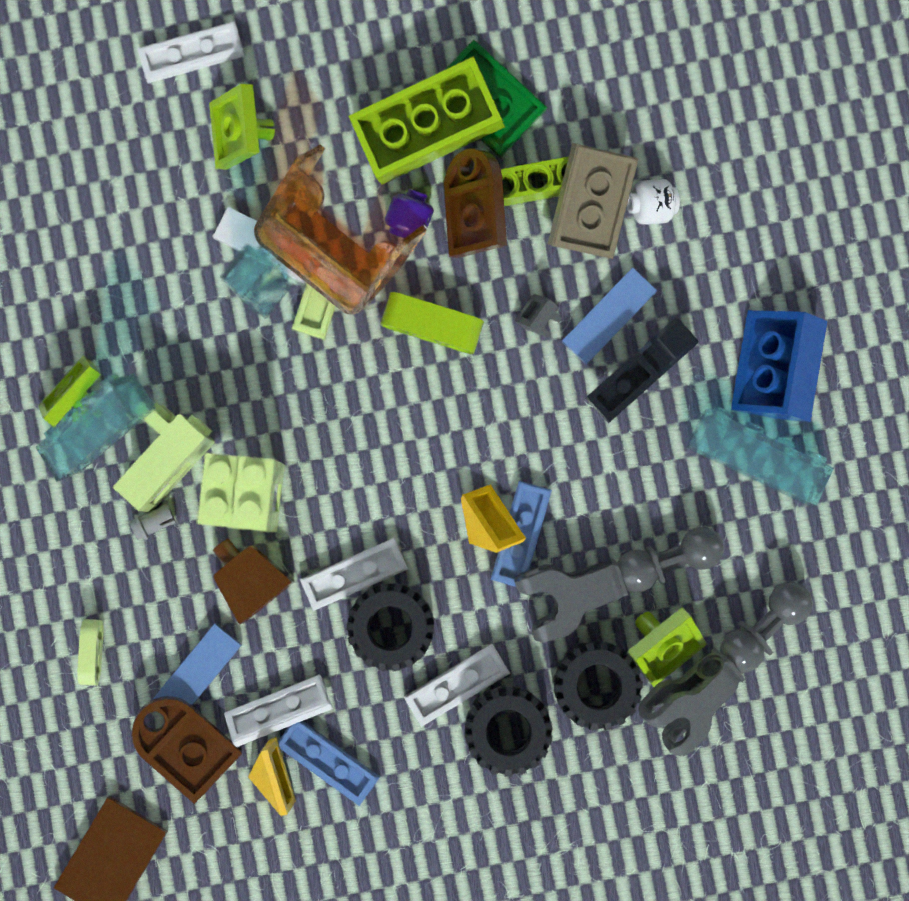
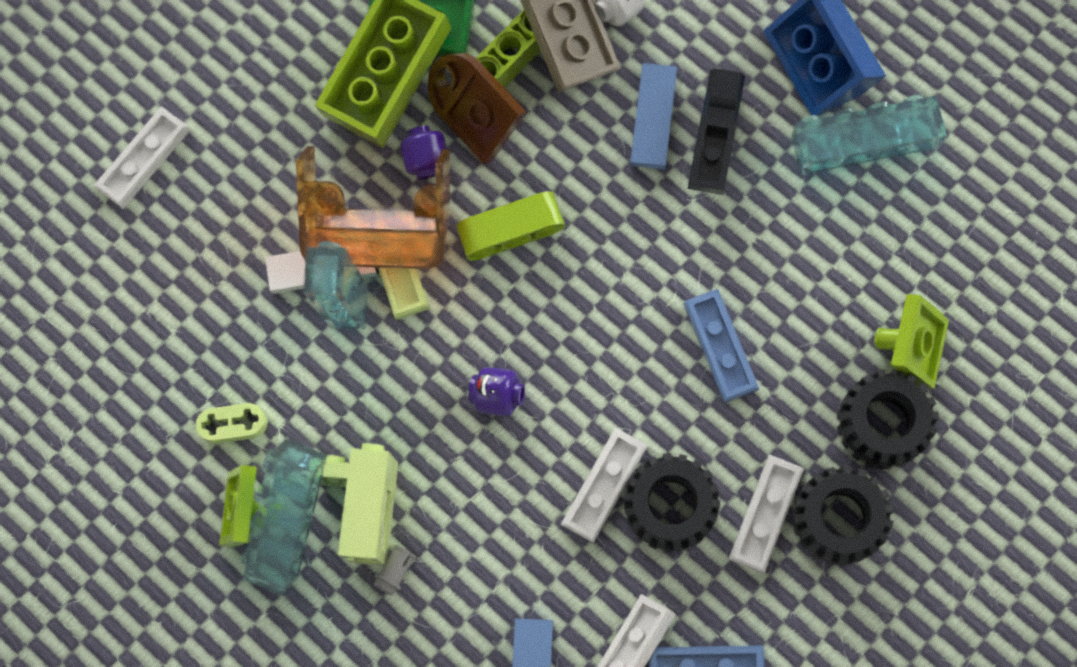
camera: 30 degrees left, 10 degrees down
(115, 312) = (232, 431): none -> yellowish green beam
(236, 127) = (225, 184): lime tile -> none
(241, 492) = (454, 477): yellowish green brick -> none
(248, 579) = (516, 556): reddish brown torso -> none
(325, 445) = (496, 391): none -> dark purple head
(489, 521) = (685, 352): yellow slope -> none
(537, 314) = (593, 155): dark grey tile -> none
(610, 580) = (827, 324): dark grey piece -> none
(700, 692) = (979, 336): dark grey piece -> none

